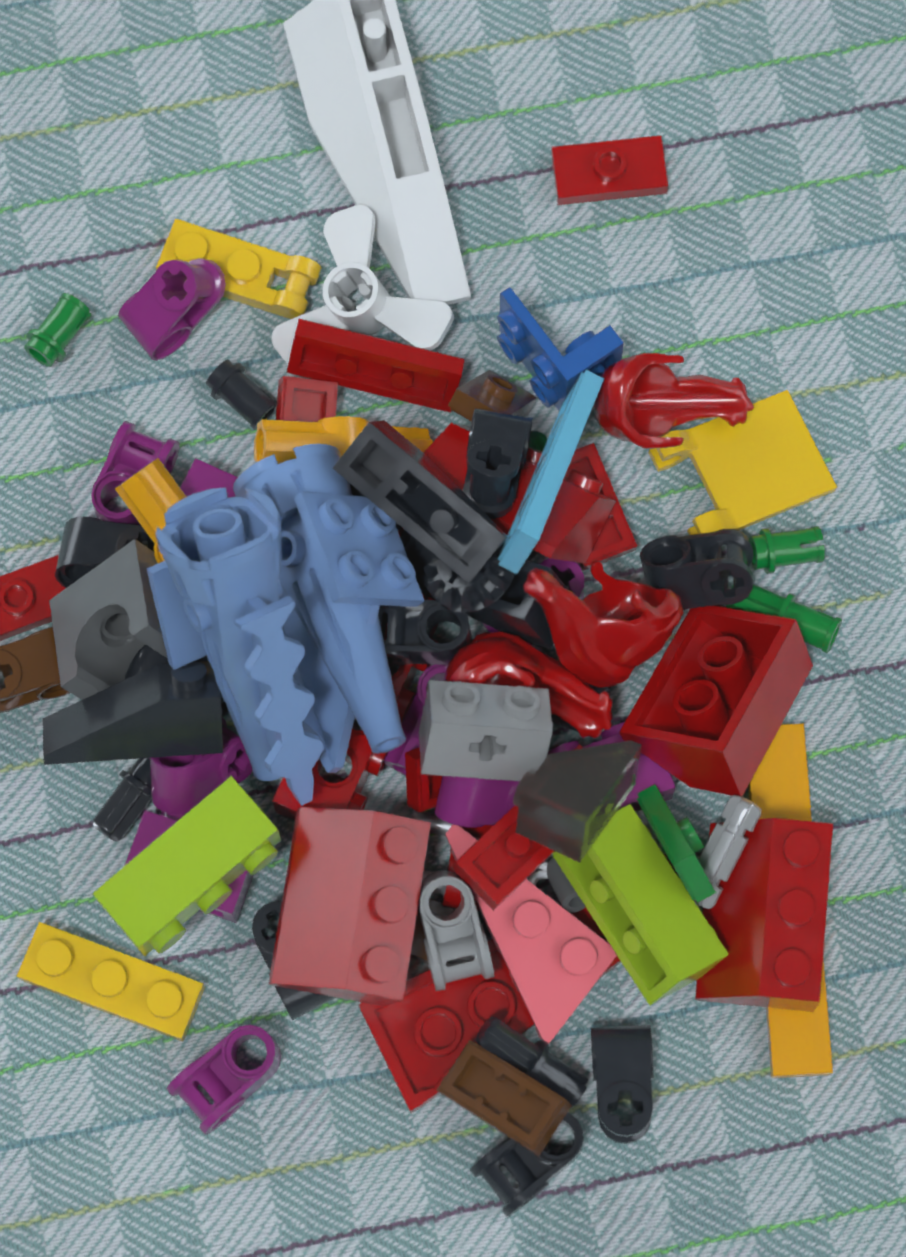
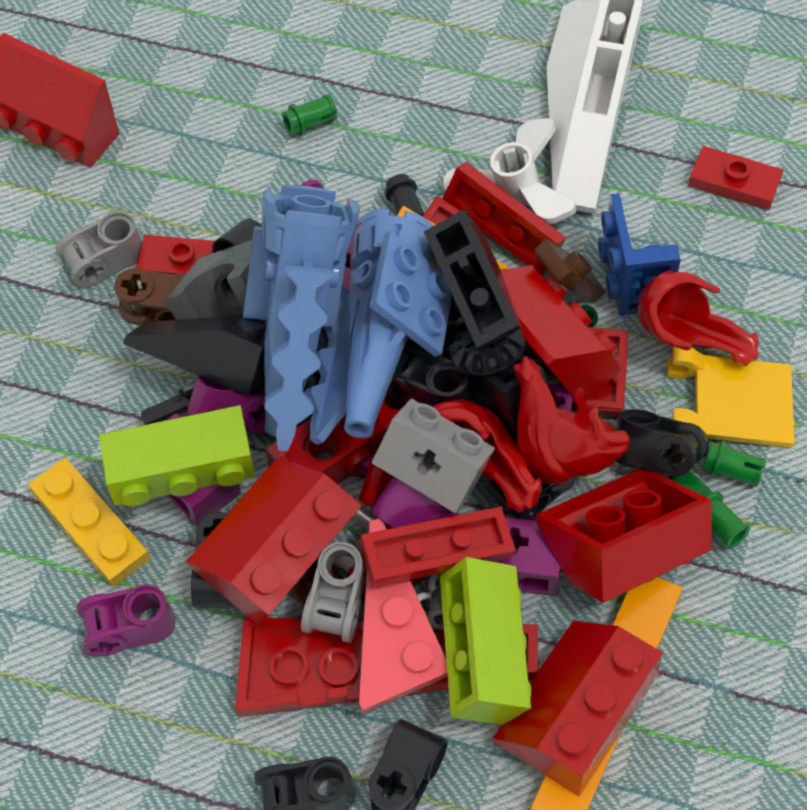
camera: 30 degrees right, 15 degrees down
(172, 304) = (387, 128): magenta piece -> none
(246, 268) = (445, 129): yellow plate -> none
(495, 459) = (546, 288): black piece -> none
(504, 1098) = (305, 730): reddish brown plate -> none
(532, 1059) = (343, 720): black axle -> none
(550, 471) = (578, 310): medium azure tile -> none
(575, 796) = (476, 529): clear smoke slope -> none
(678, 841) = (535, 611): green plate -> none
(727, 844) = (568, 636): light grey axle -> none

